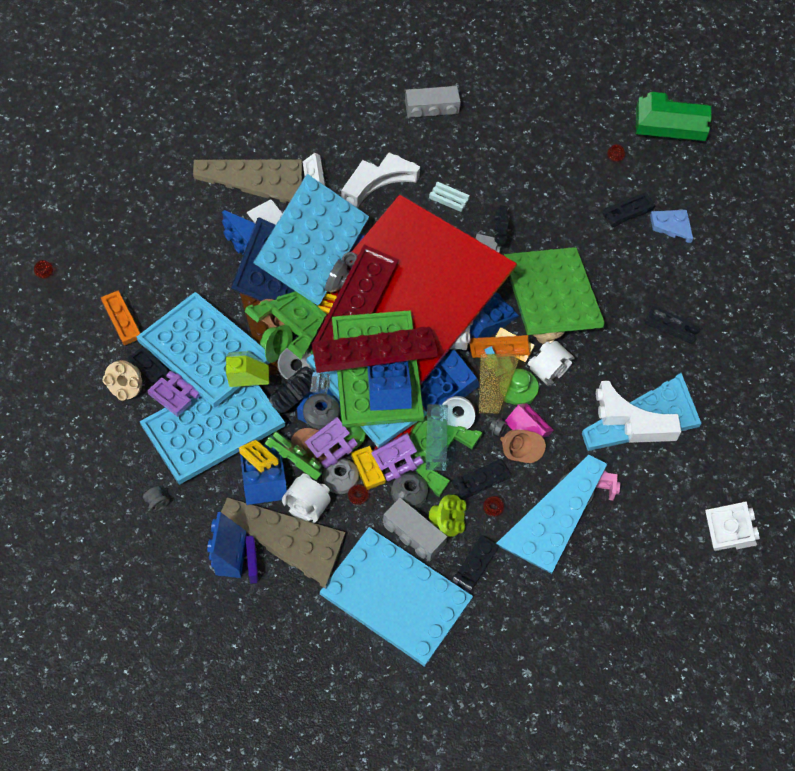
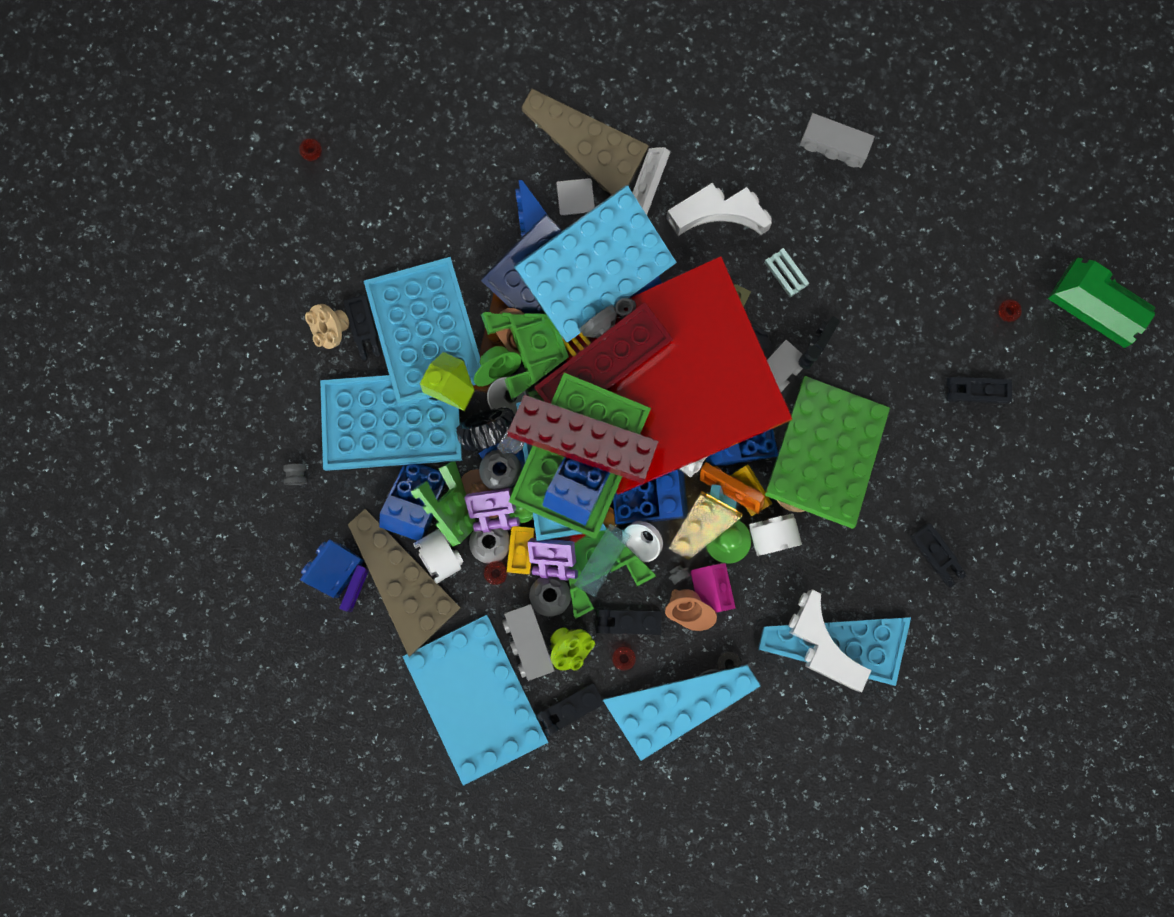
camera: 30 degrees right, 20 degrees up
(120, 317) = (360, 248): orange plate -> none
(170, 397) = (360, 370): medium lavender plate -> none
(255, 457) = (411, 466): yellow tile -> none
(609, 481) = (760, 704): bright pink bracket -> none
(672, 223) = (1018, 432): medium blue wing -> none
(732, 526) = (854, 814): white plate -> none

